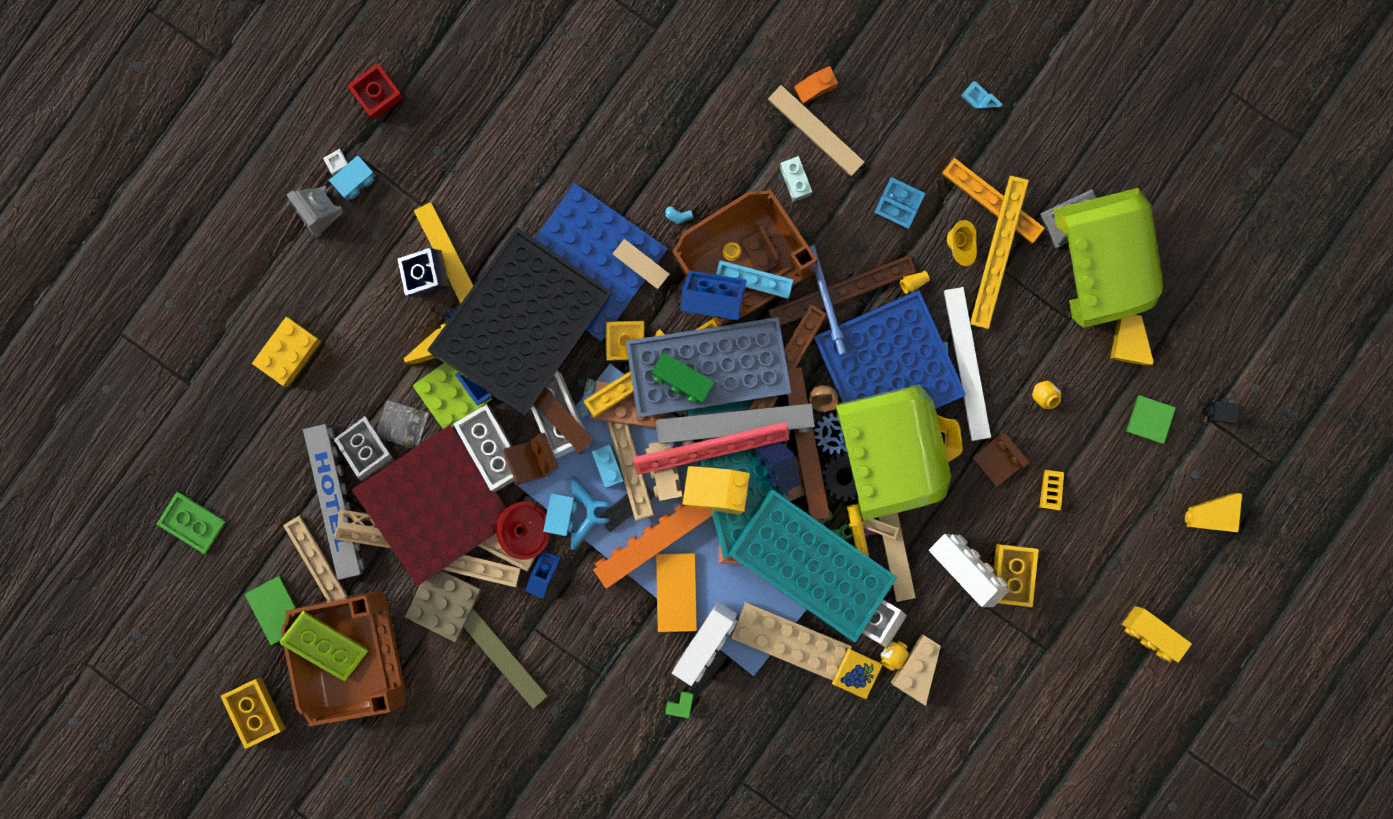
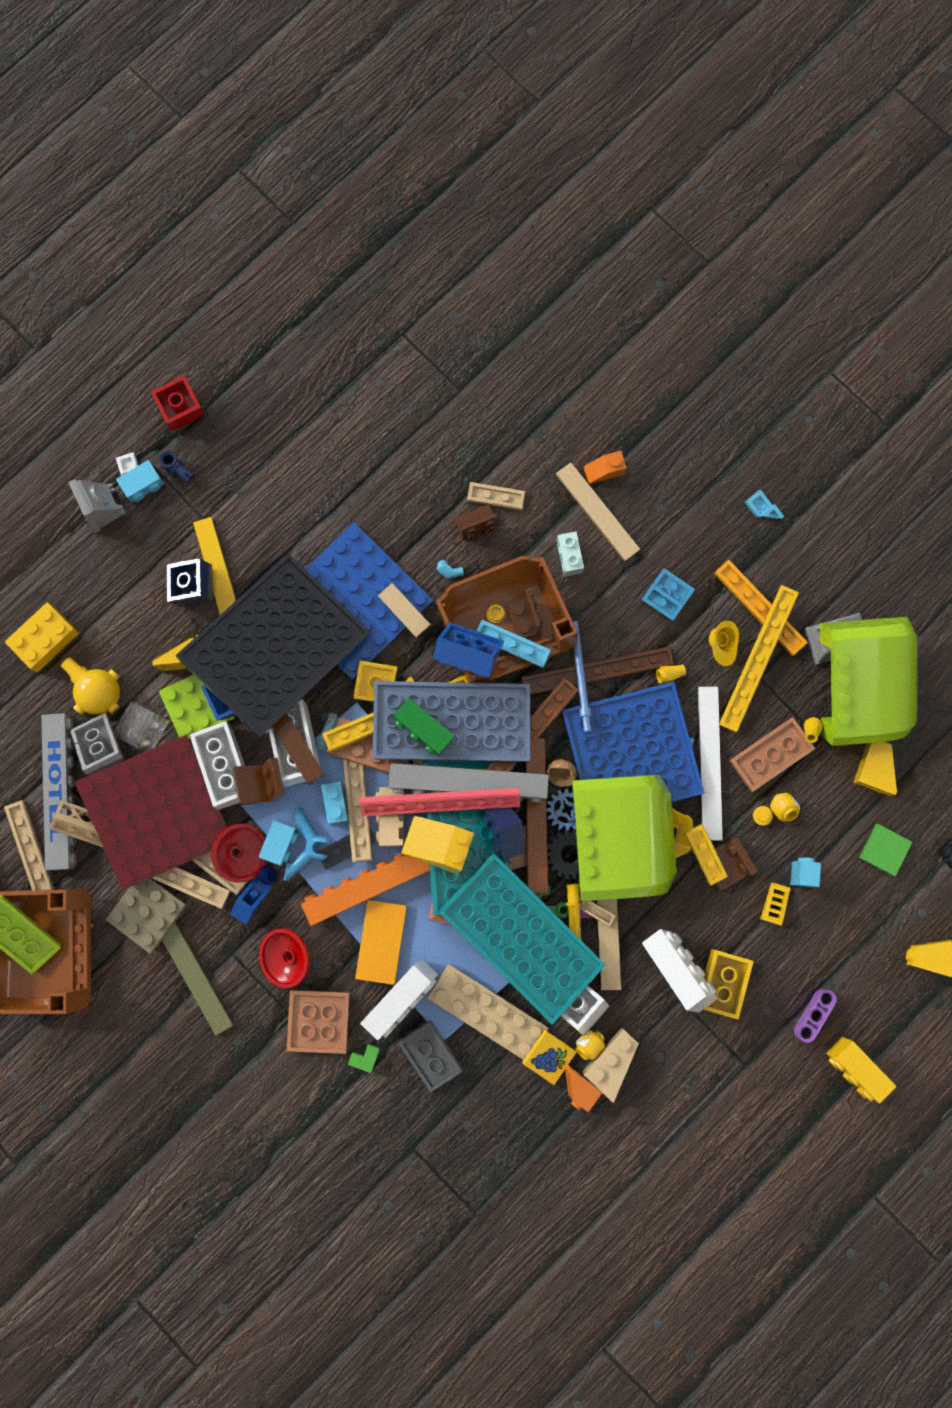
camera: 10 degrees right, 5 degrees down
(348, 395) = (94, 689): none -> yellow piece
(386, 157) = (176, 467): none -> dark blue pin
(554, 547) = (267, 875): none -> clear blue plate
(578, 626) = (276, 958): none -> red dish
(629, 678) = (318, 1021): none -> nougat plate
(696, 161) = (476, 522): none -> reddish brown bracket
(711, 131) = (496, 496): none -> tan tile
(743, 692) = (430, 1056): none -> dark grey tile
(892, 699) = (581, 1090): none -> orange slope
(977, 454) = (706, 854): none -> yellow tile
(1026, 345) = (771, 754): none -> nougat plate
(1026, 406) = (762, 815): none -> yellow plate
(1062, 313) = (812, 729): none -> yellow cone
(1076, 455) = (805, 872): none -> medium azure brick
(1113, 584) = (823, 1010): none -> medium lavender beam

